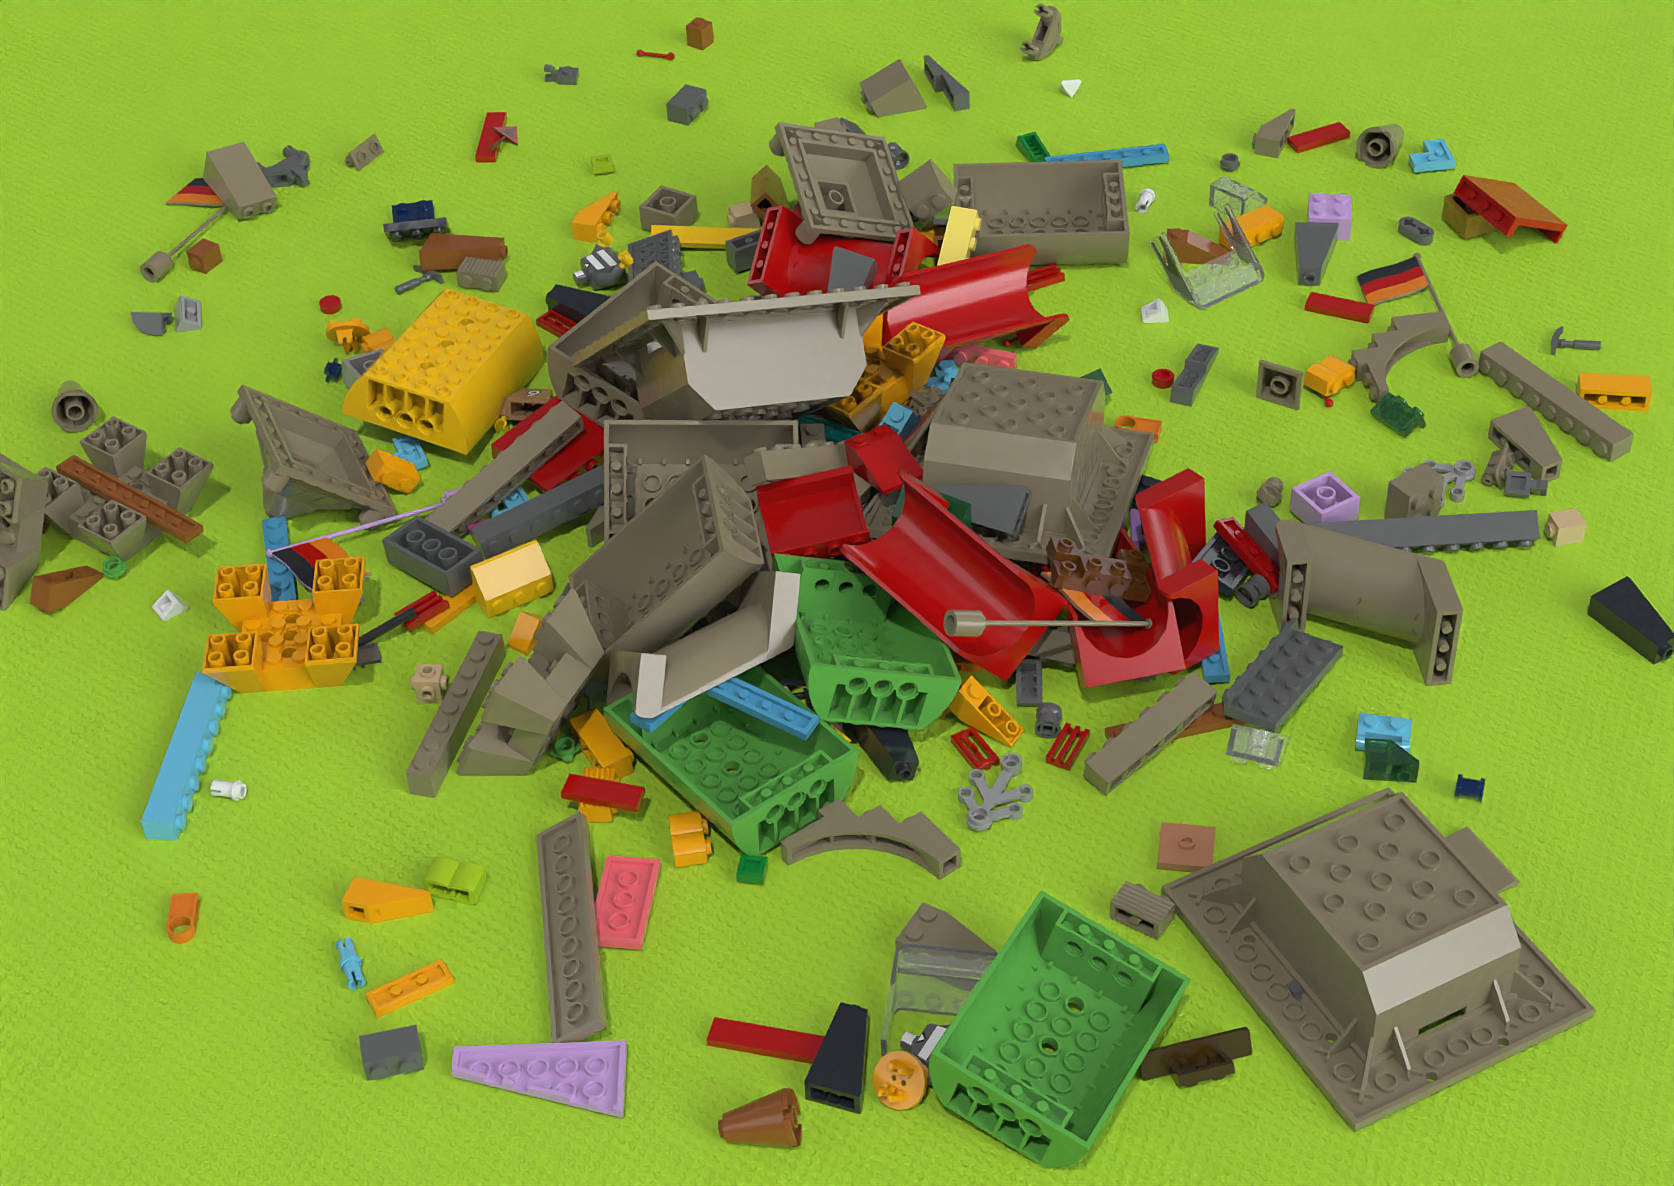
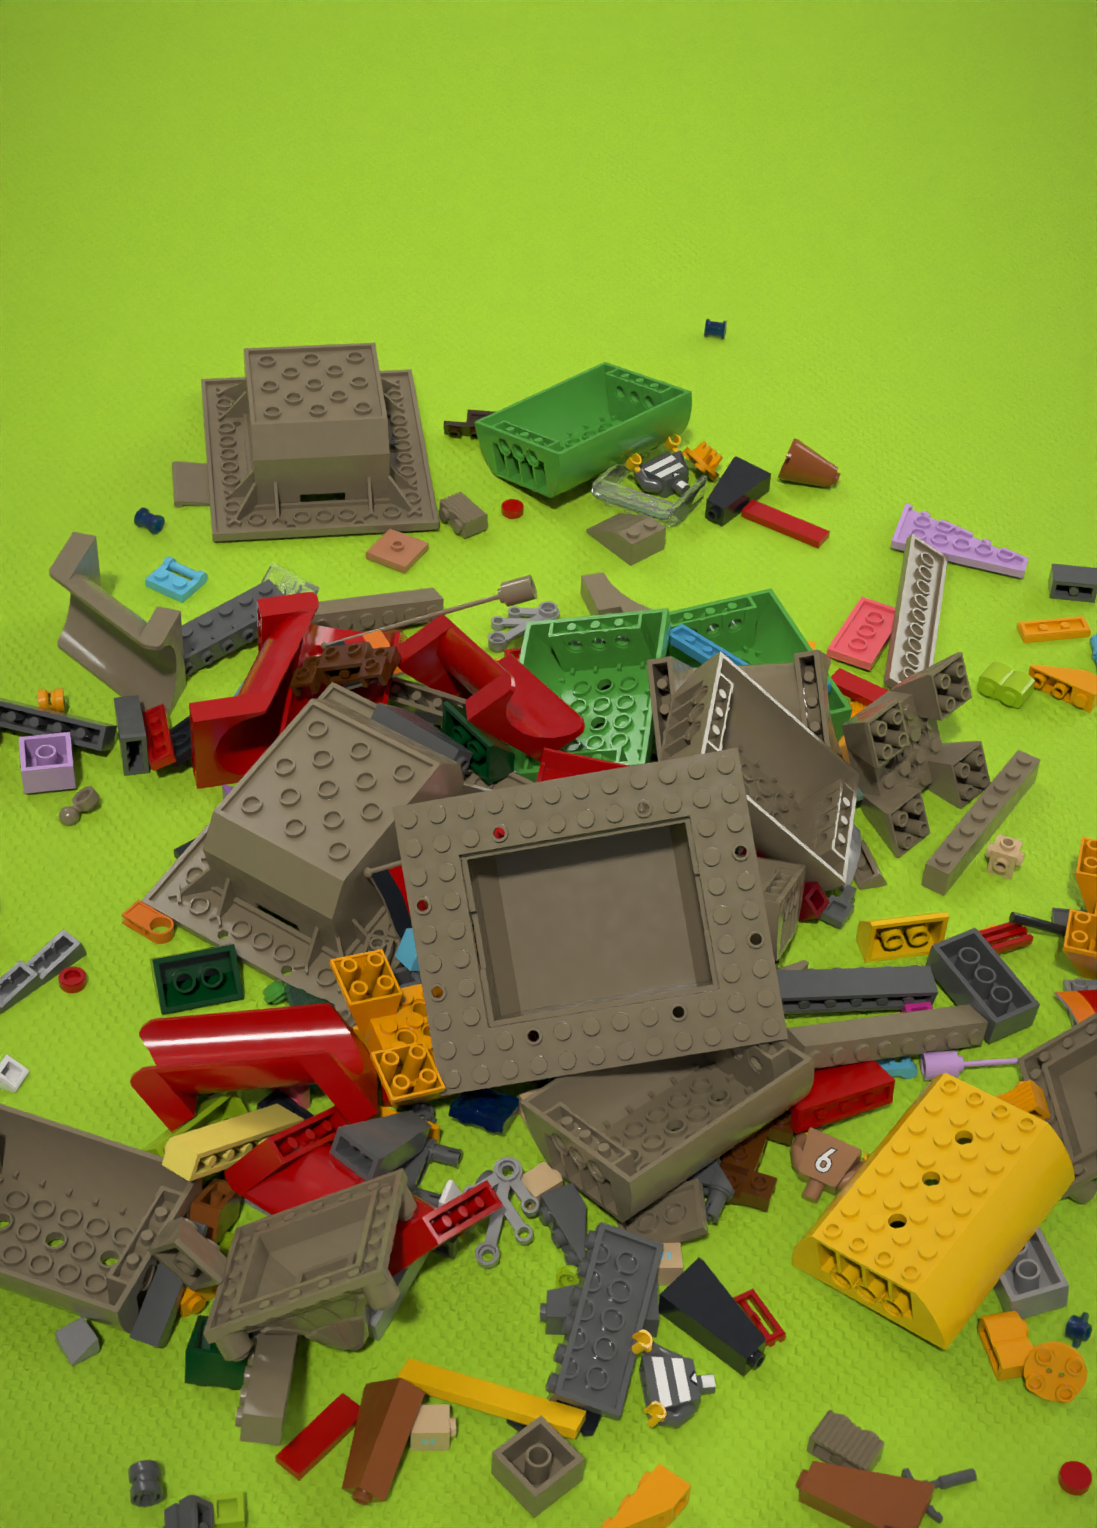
camera: 165 degrees left, 0 degrees up
(524, 631) = (887, 891): light orange slope -> none
(741, 250) = (455, 1338): dark grey brick -> none
(1253, 590) = (178, 712): dark grey wheel -> none
(1388, 762) = (197, 552): clear green slope -> none

